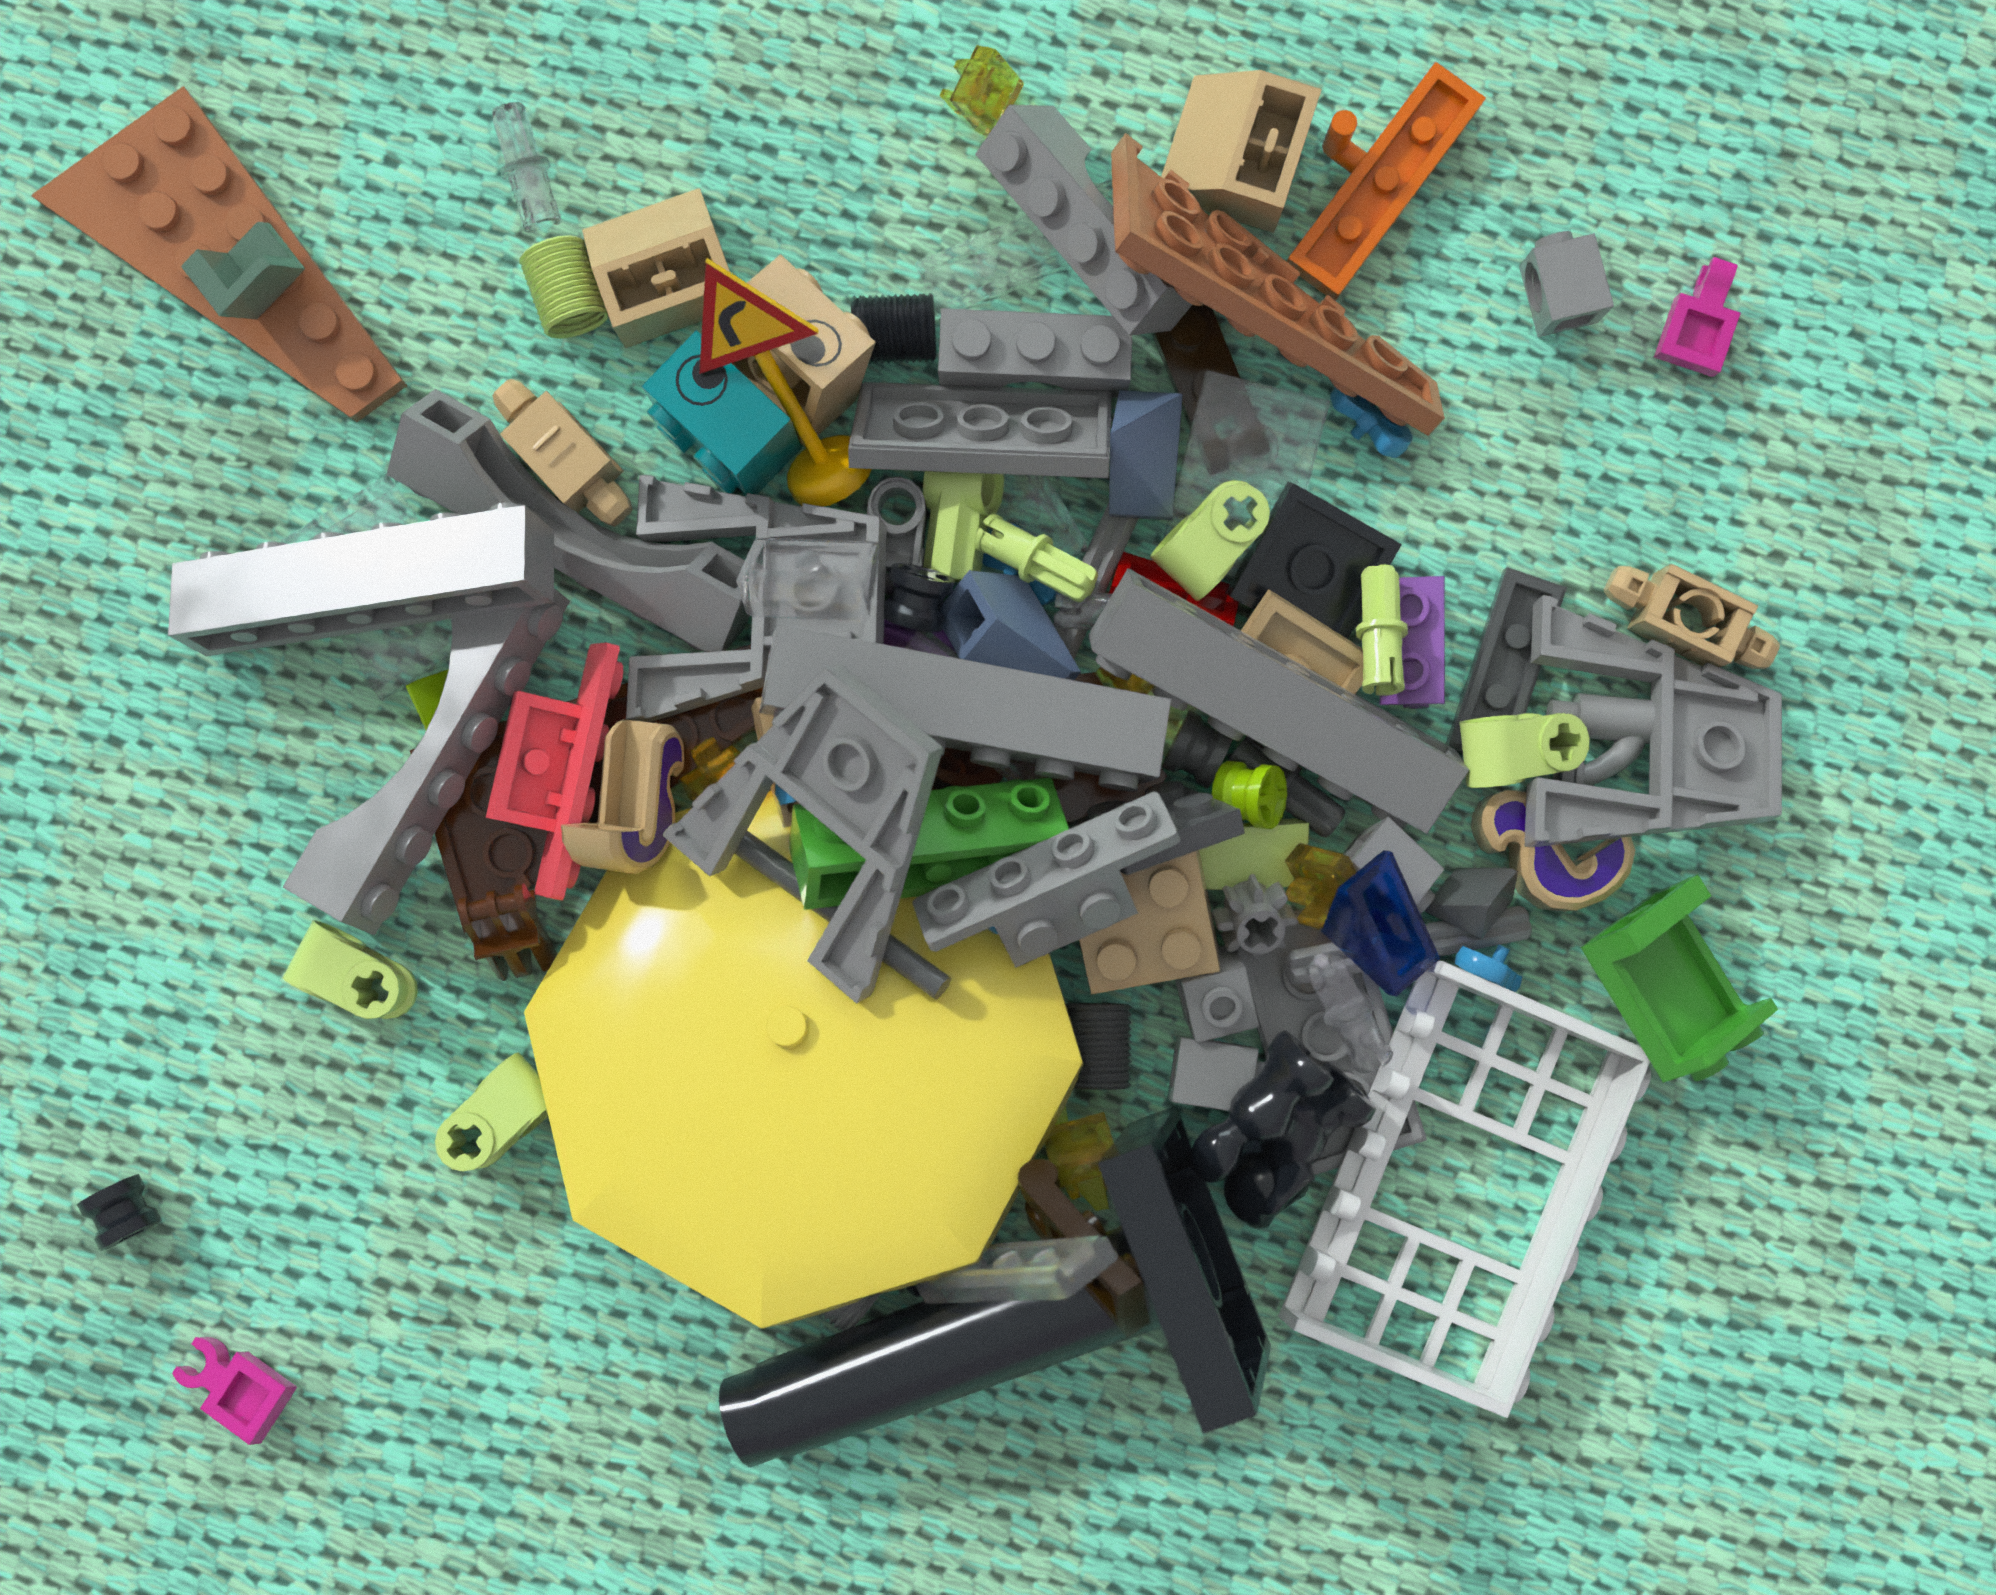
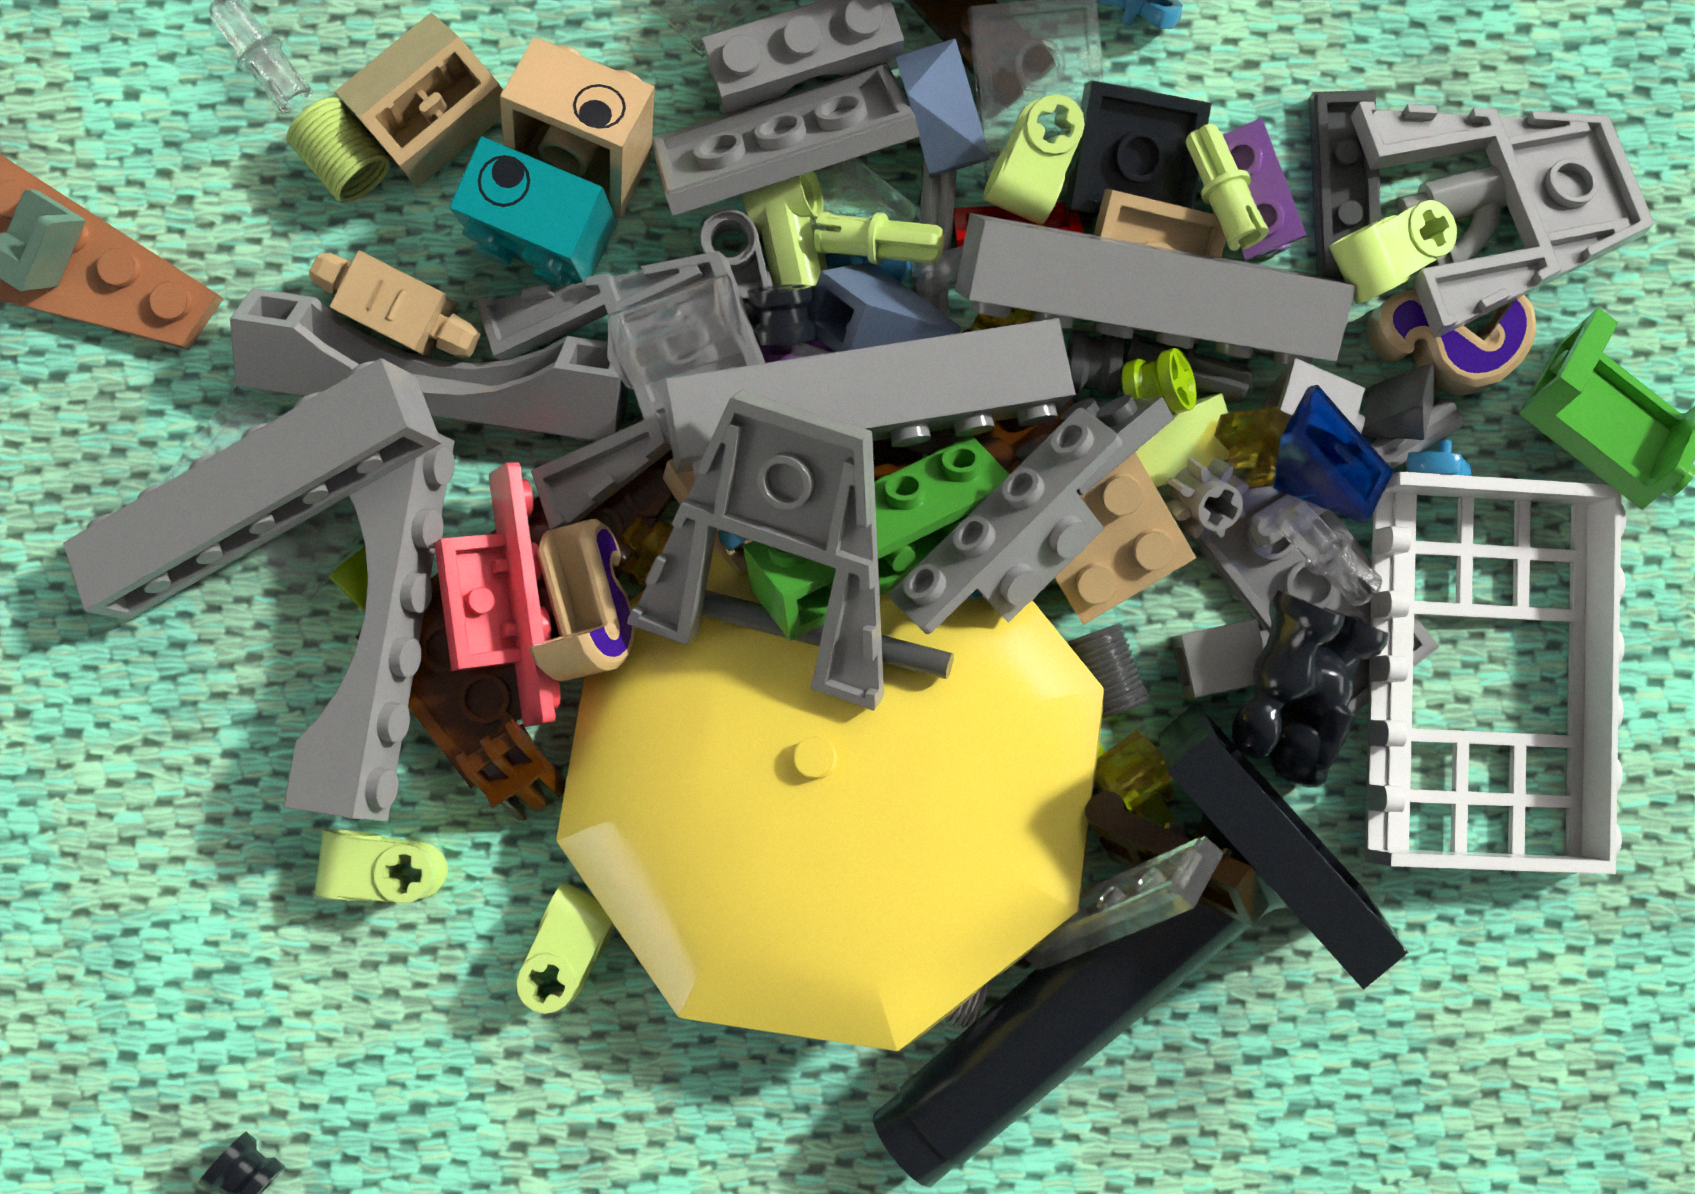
camera: 25 degrees left, 0 degrees up
(747, 323) = (529, 107): yellow piece -> none
(899, 326) = (672, 68): black piece -> none
(1218, 1001) = (1202, 588): light grey brick -> none
(1717, 606) = (1517, 55): tan piece -> none

